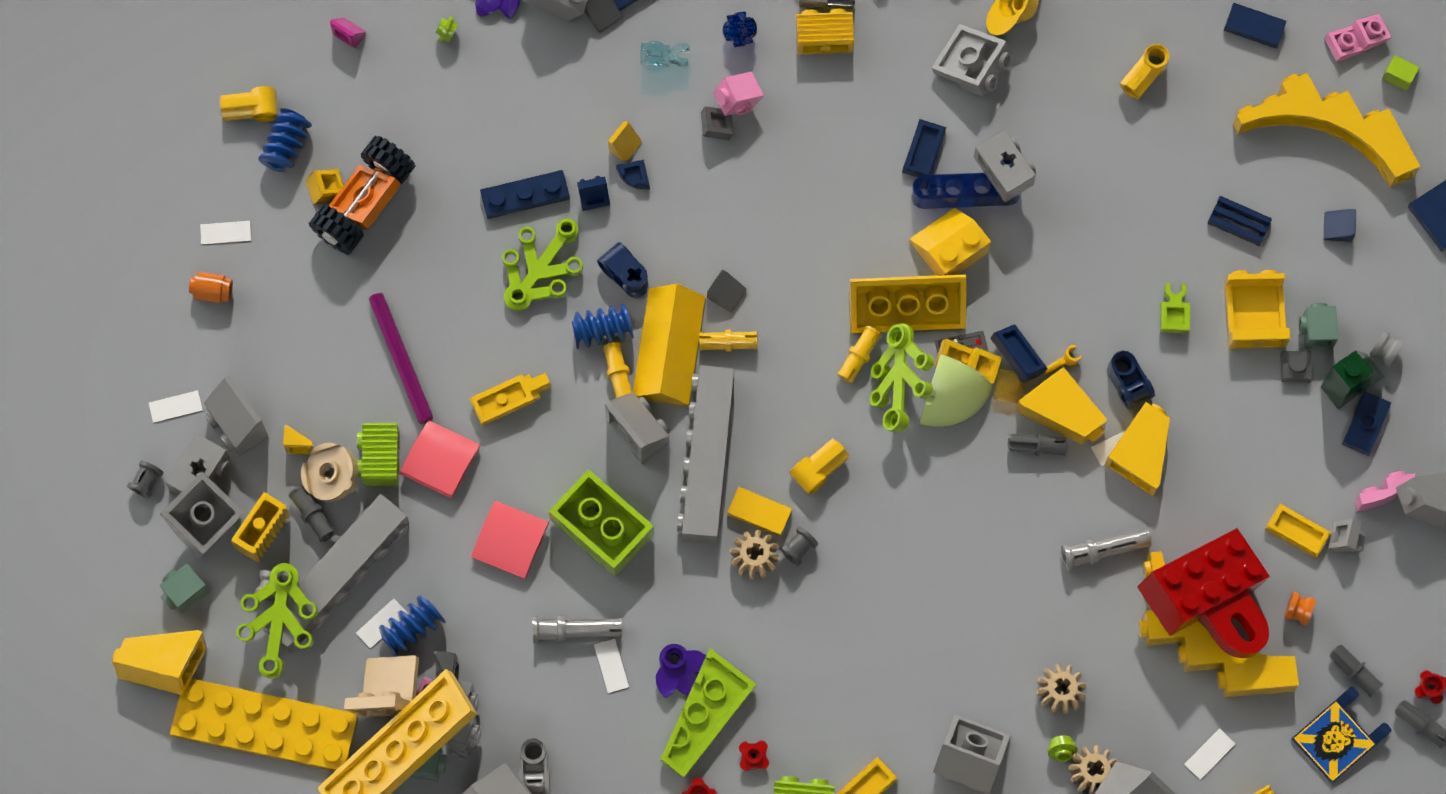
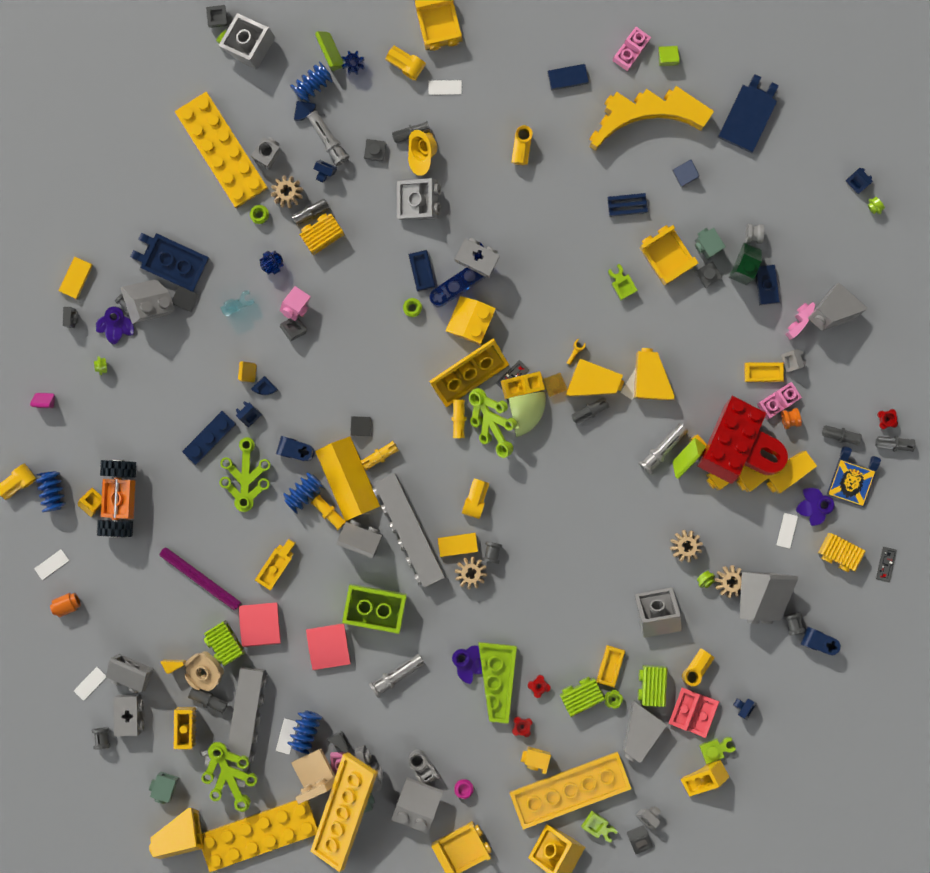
camera: 30 degrees left, 15 degrees up
(201, 514) = (147, 743): light grey slope -> none
(611, 665) = (431, 684): white sticker -> none
(884, 178) = (410, 301): none -> lime plate
(1018, 353) = (548, 363): dark blue tile -> none
(1130, 385) = (621, 341): dark blue piece -> none
(1130, 574) = (687, 457): none -> lime slope
(1262, 742) = (812, 506): none -> dark purple plate
(1300, 577) = (779, 400): none -> bright pink slope

